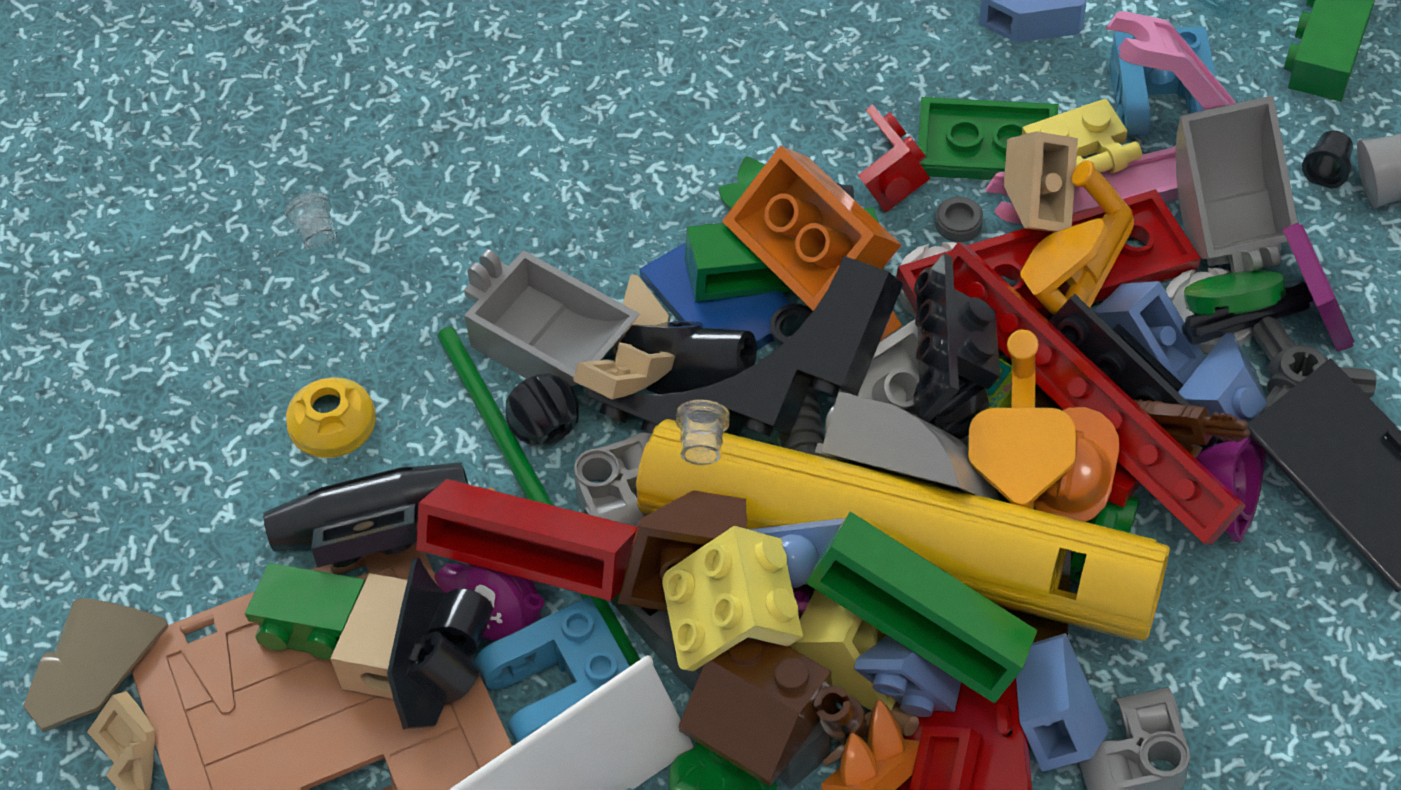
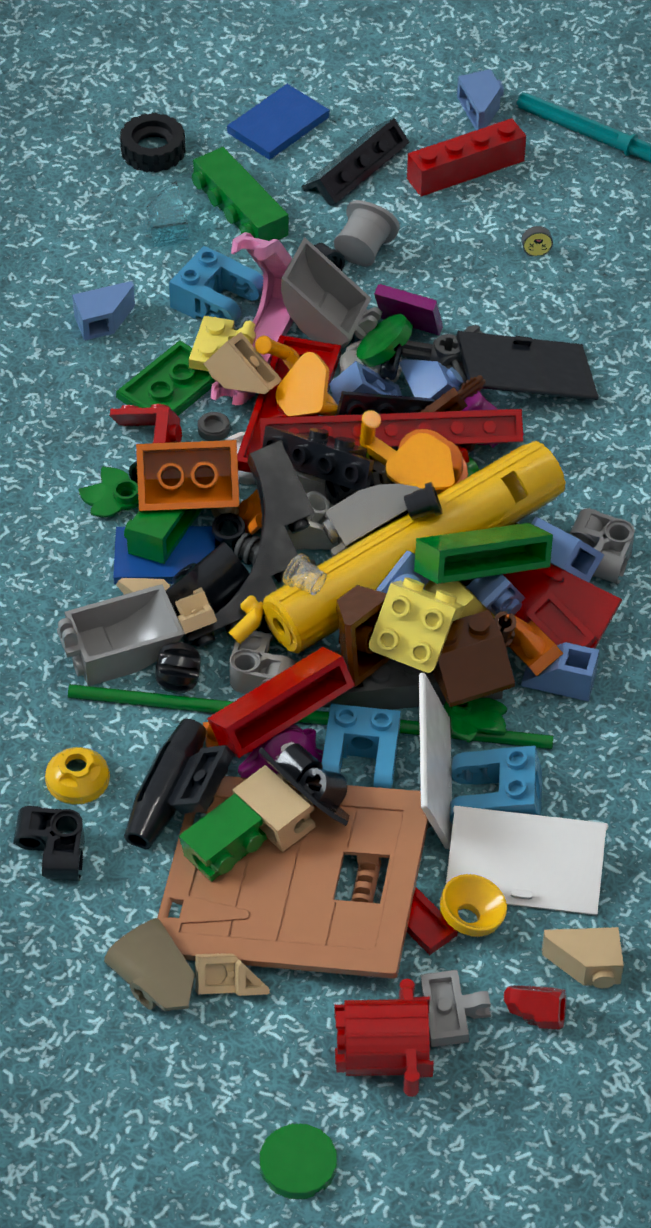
camera: 60 degrees left, 5 degrees down
(202, 467) = (43, 831): none -> black piece
(638, 433) = (250, 622): none -> yellow arm
(929, 485) = (423, 502): none -> black piece

